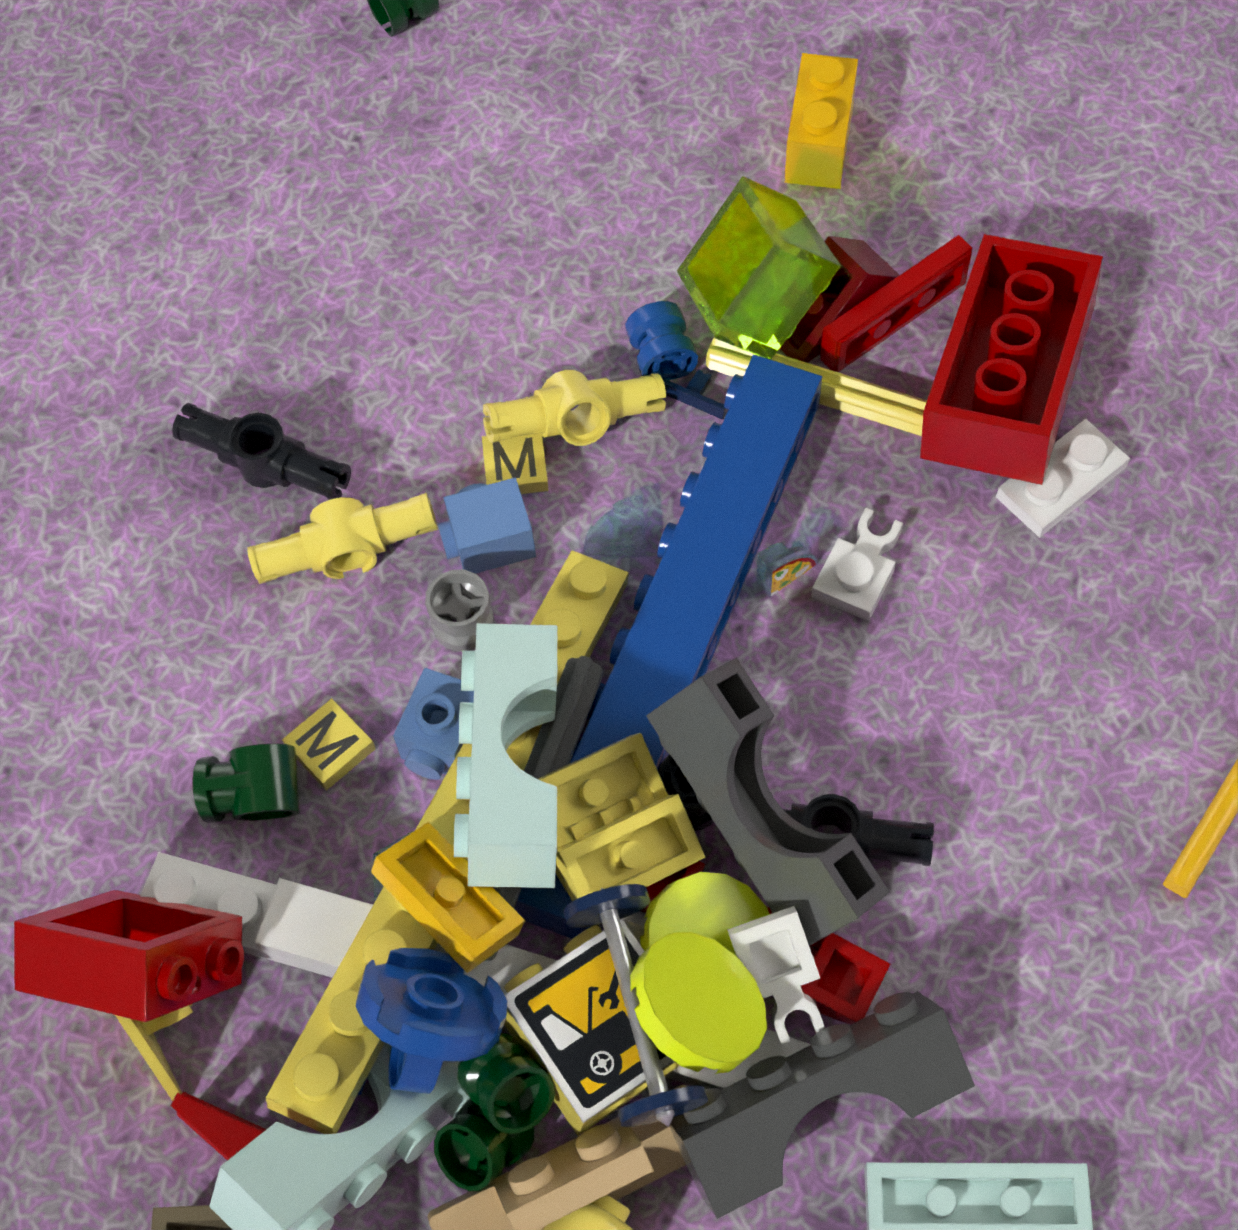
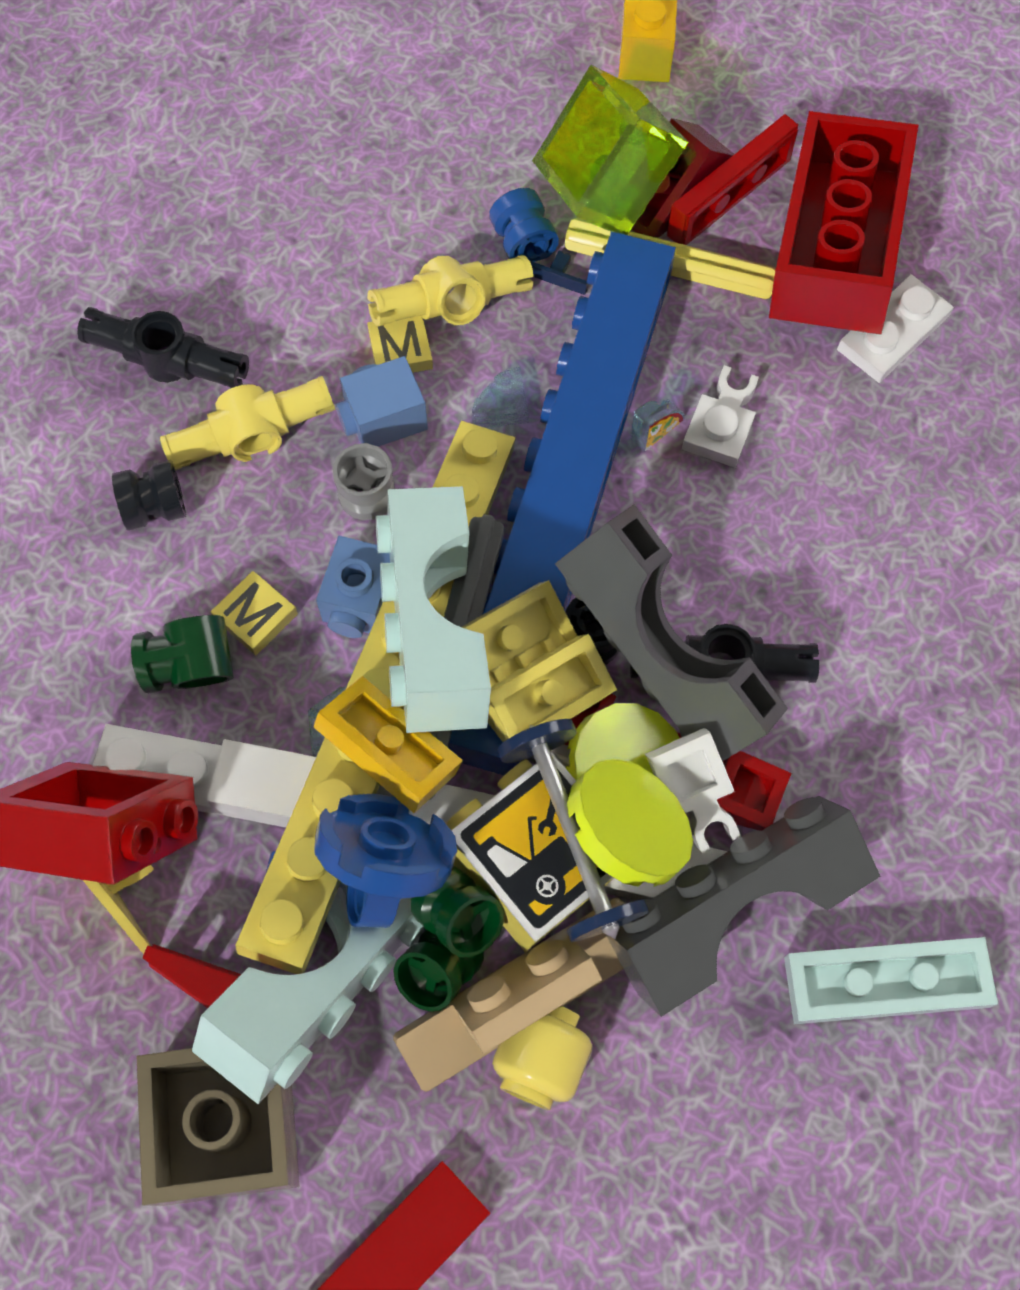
camera: 10 degrees left, 5 degrees up
(236, 608) = (153, 494): none -> black wheel

